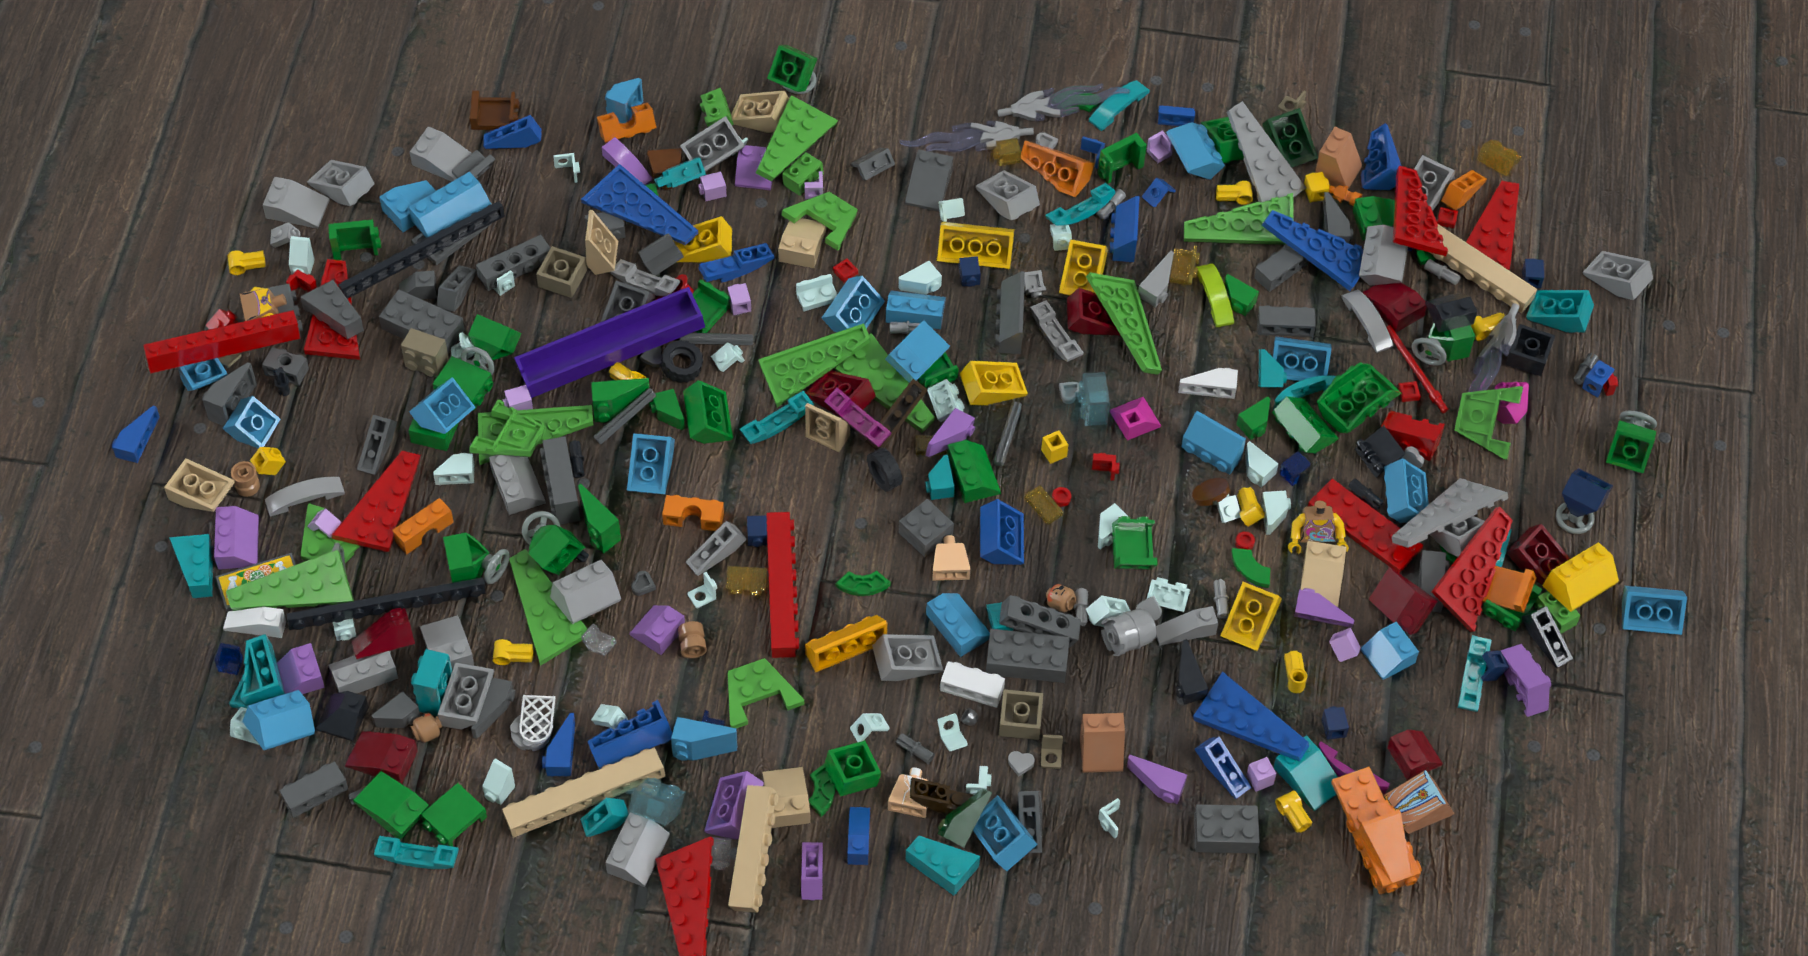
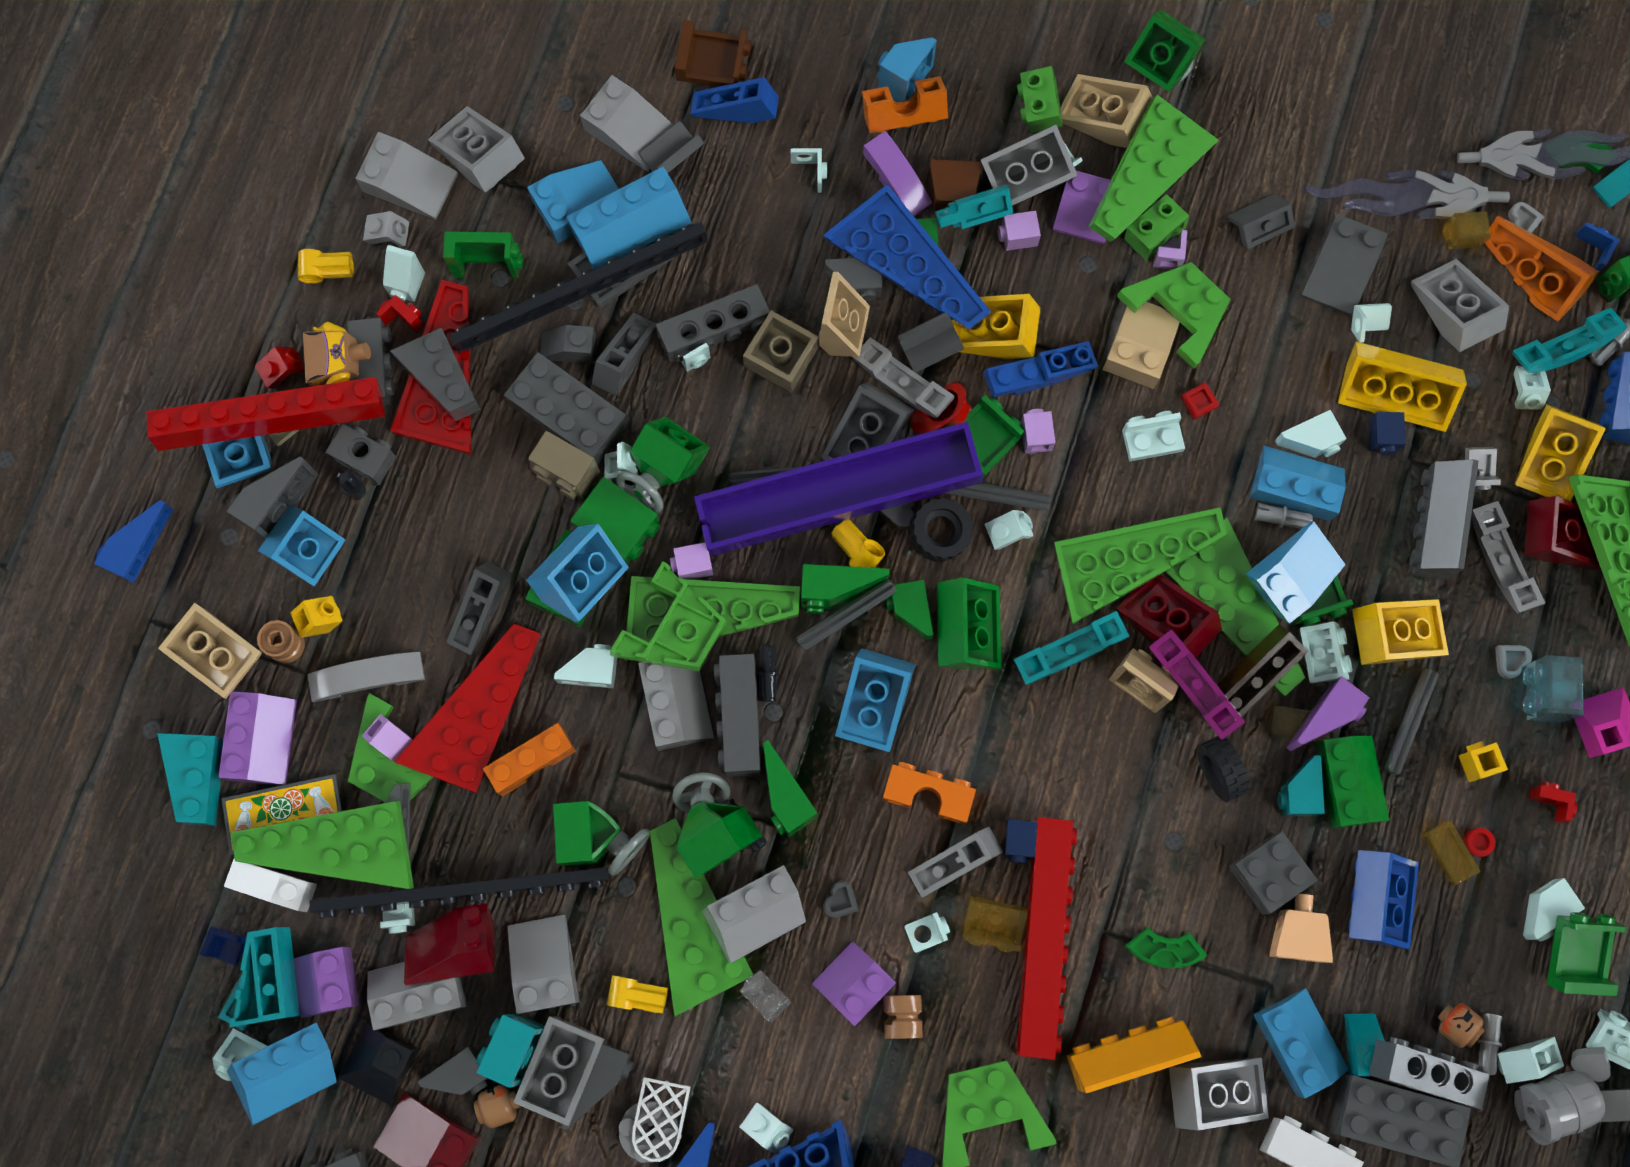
camera: 10 degrees right, 20 degrees up
(853, 305) = (1205, 470): dark azure slope -> none

